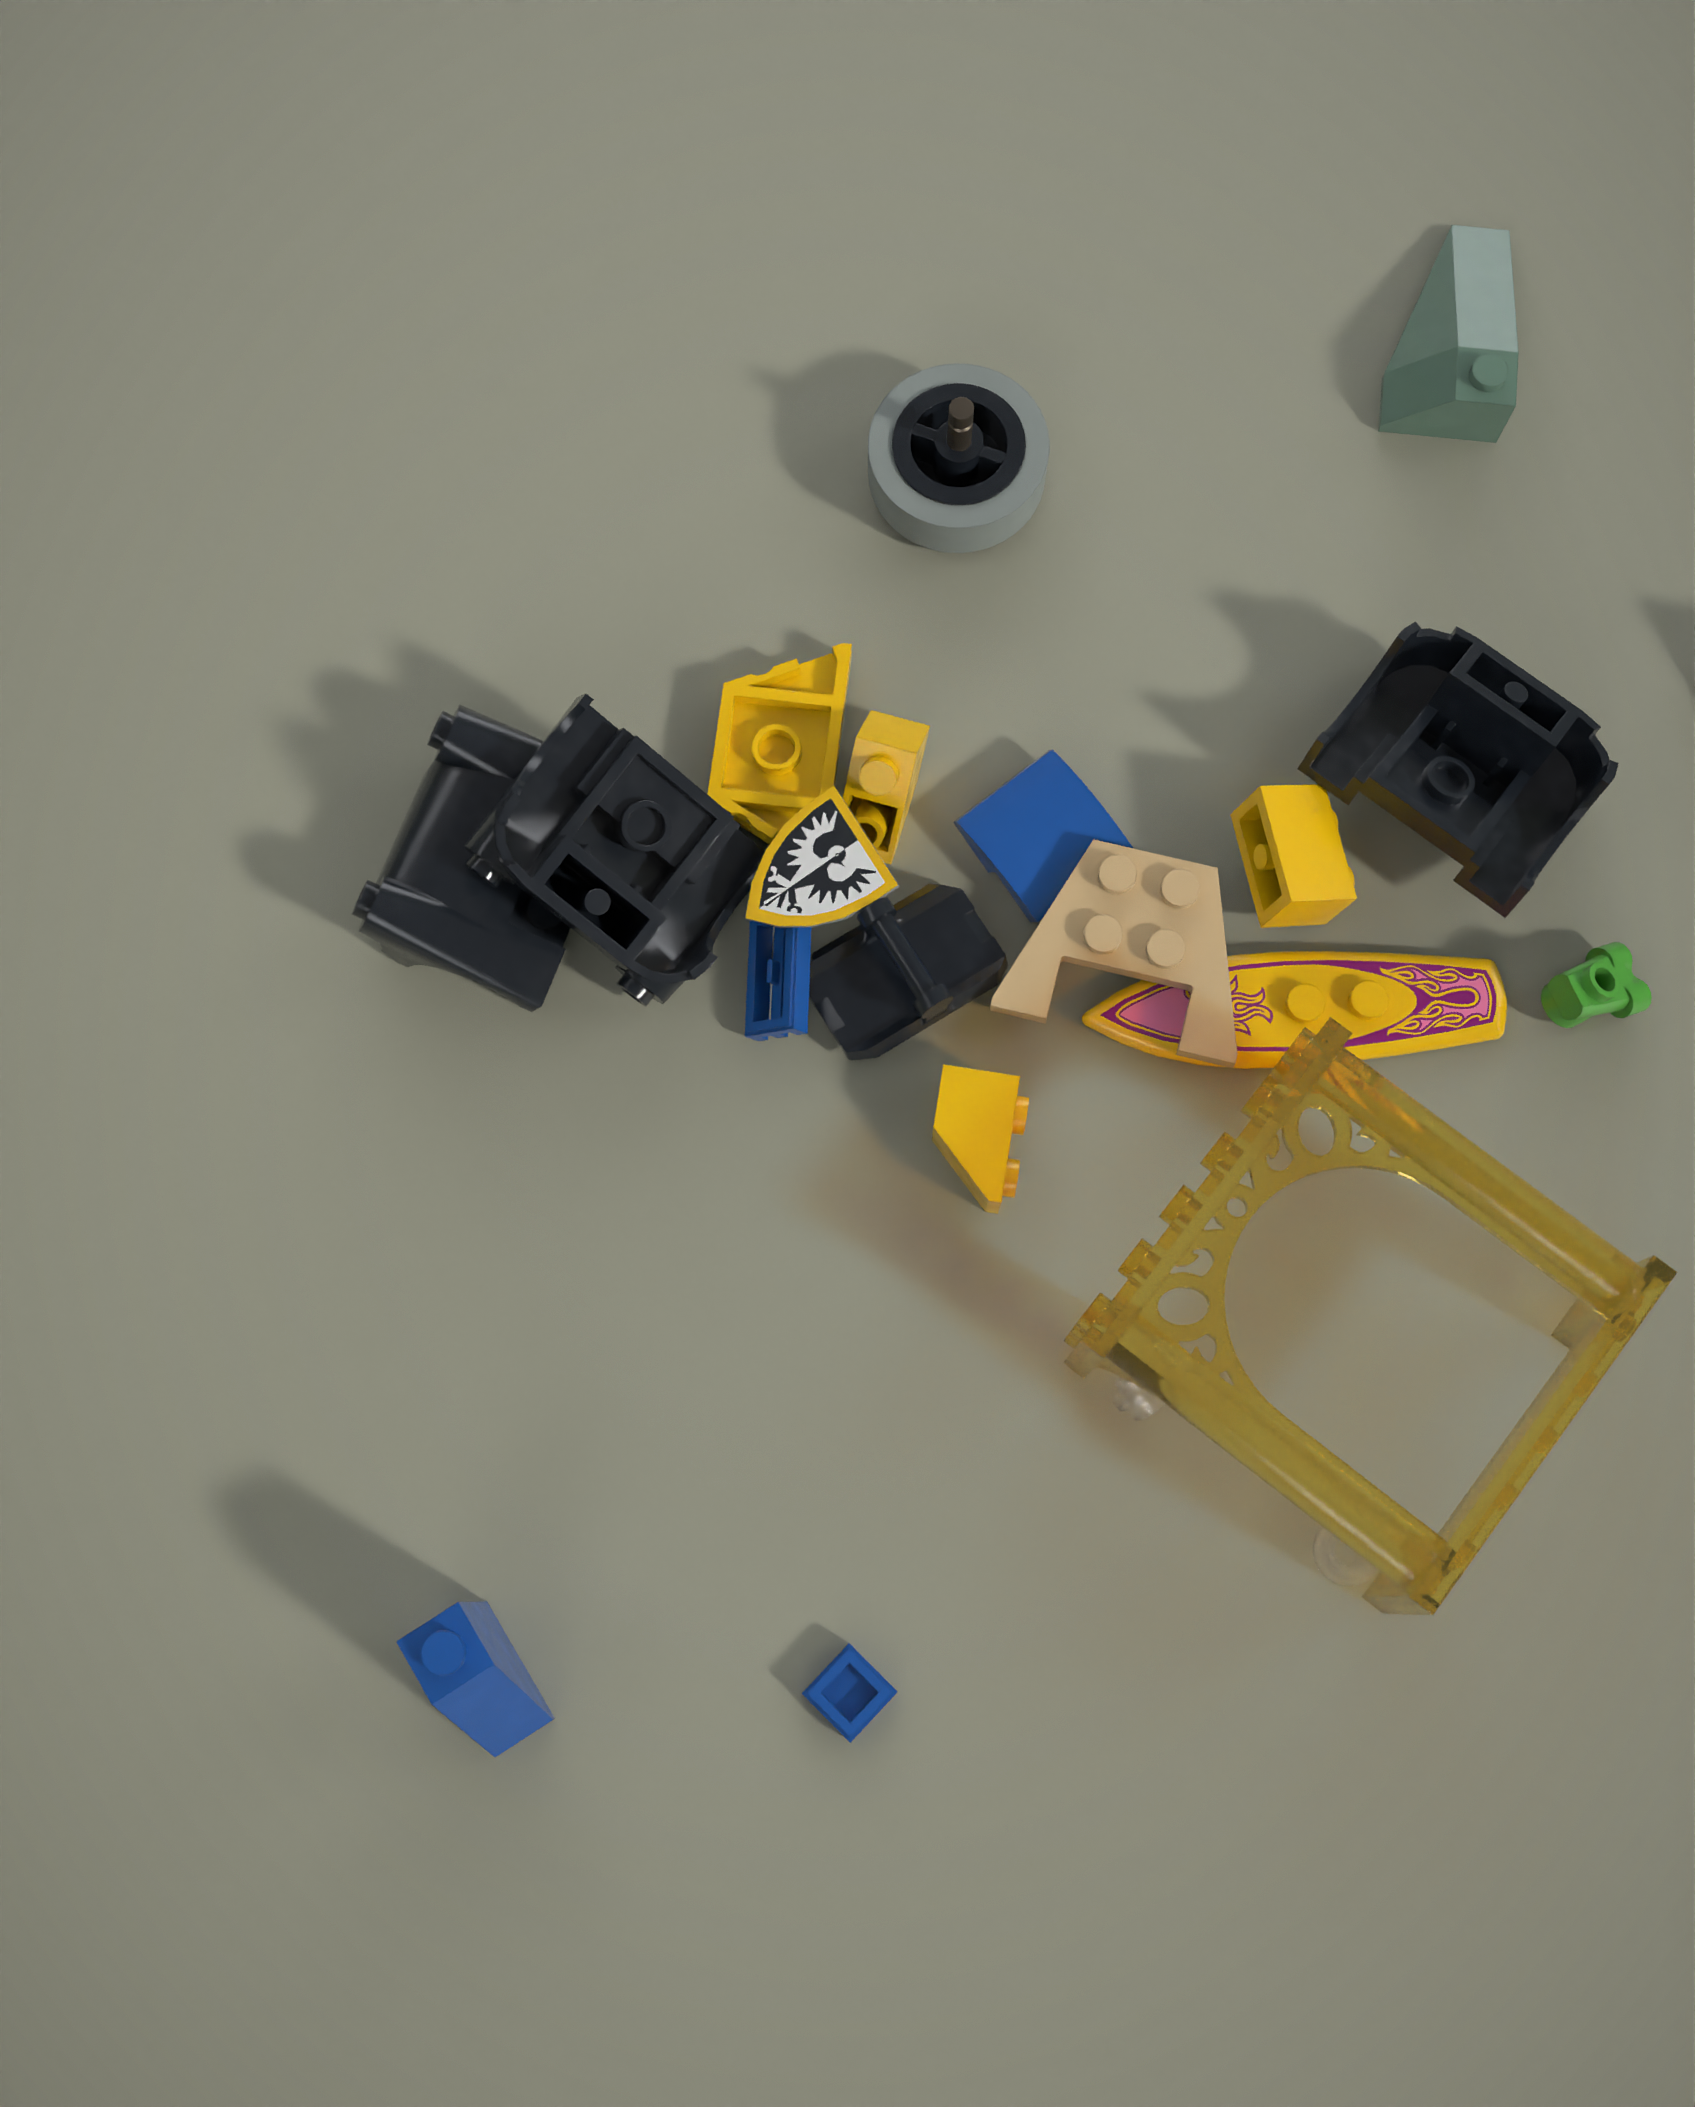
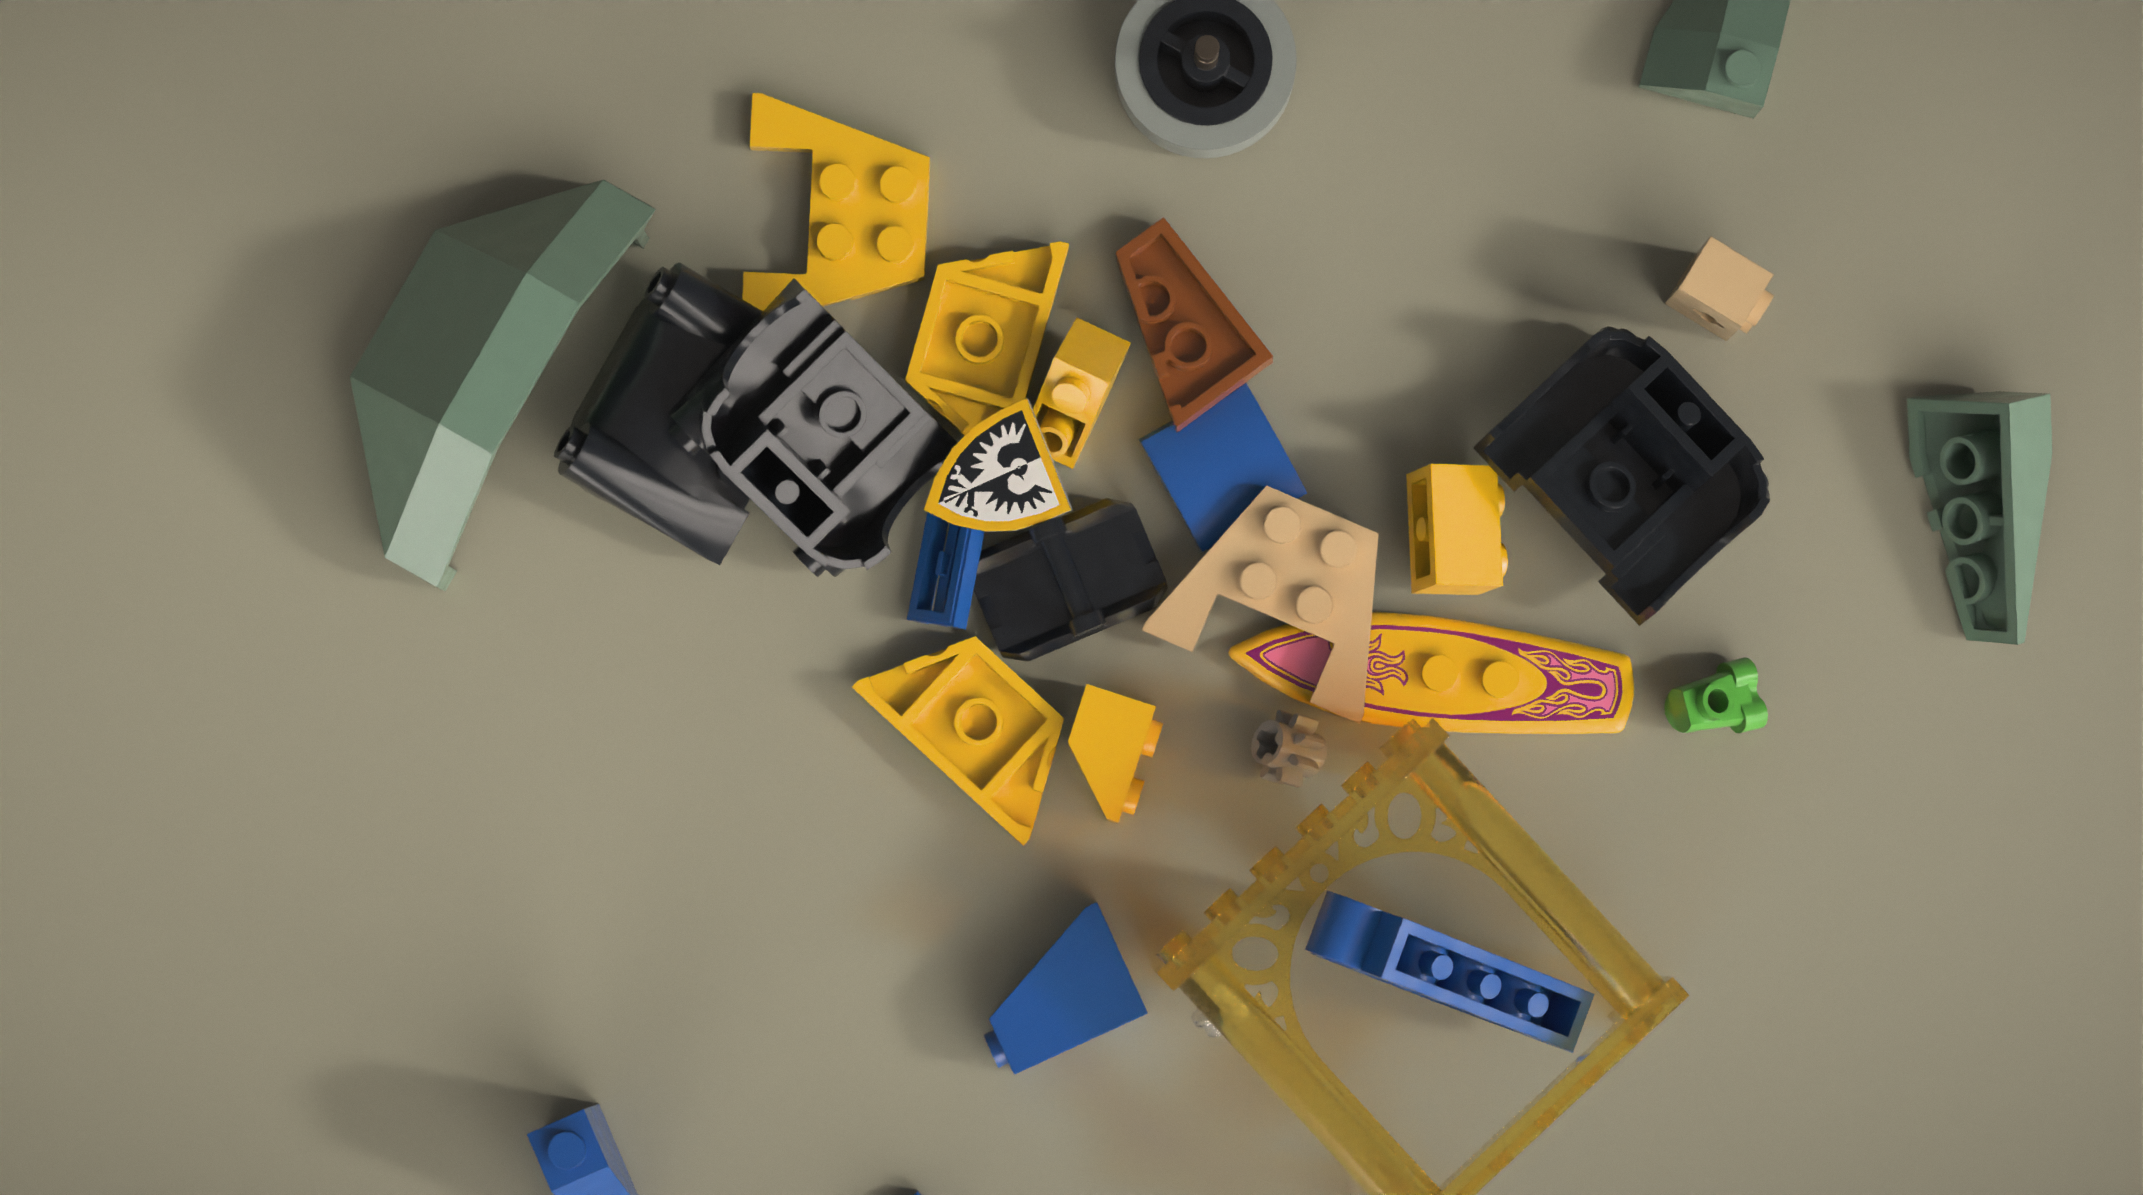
camera: 10 degrees right, 10 degrees up
(237, 832) = (468, 352): none -> sand green panel
(640, 642) = (863, 207): none -> yellow wing
(832, 1133) = (974, 726): none -> yellow wing
(977, 1401) = (1066, 998): none -> blue slope
(984, 702) = (1188, 324): none -> dark orange wing
(1165, 1102) = (1289, 748): none -> light grey gear
(1393, 1294) = (1448, 971): none -> blue brick
(1514, 582) = (1722, 290): none -> tan brick

